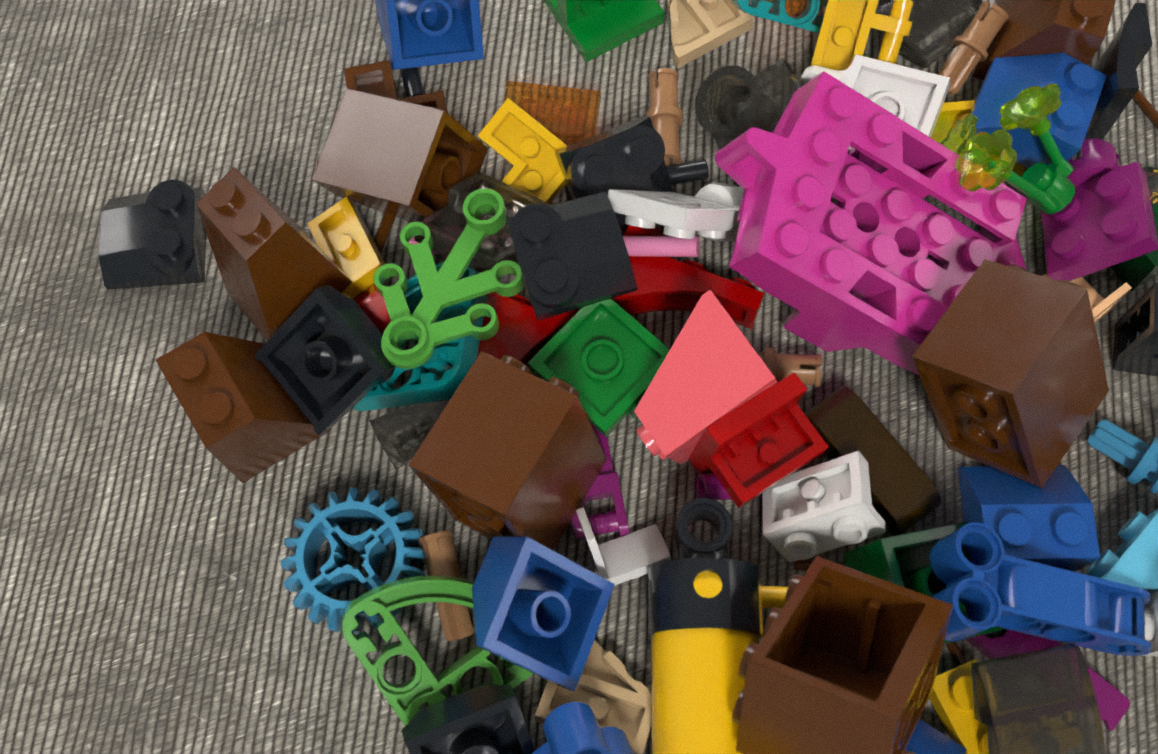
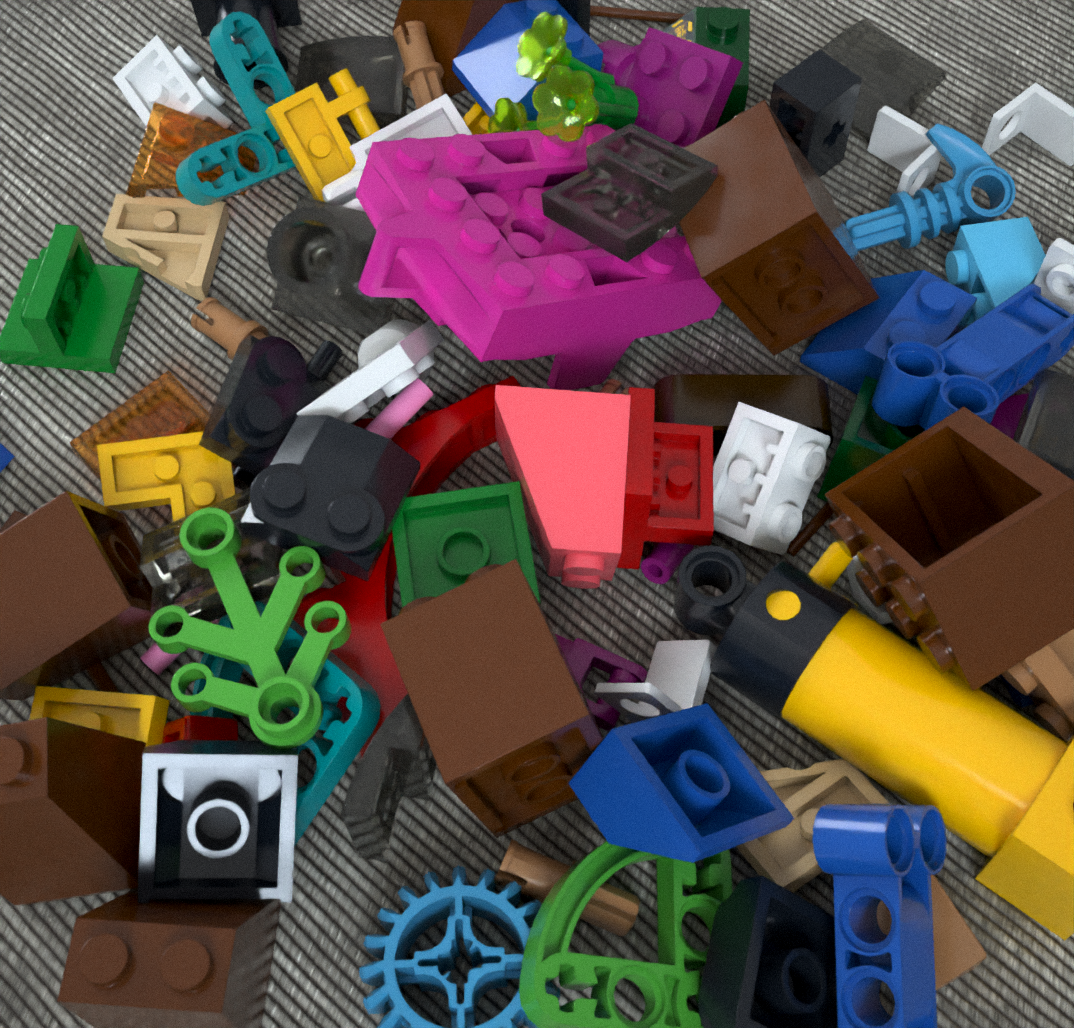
camera: 55 degrees left, 10 degrees down
(944, 259) = (630, 191): none -> clear smoke slope

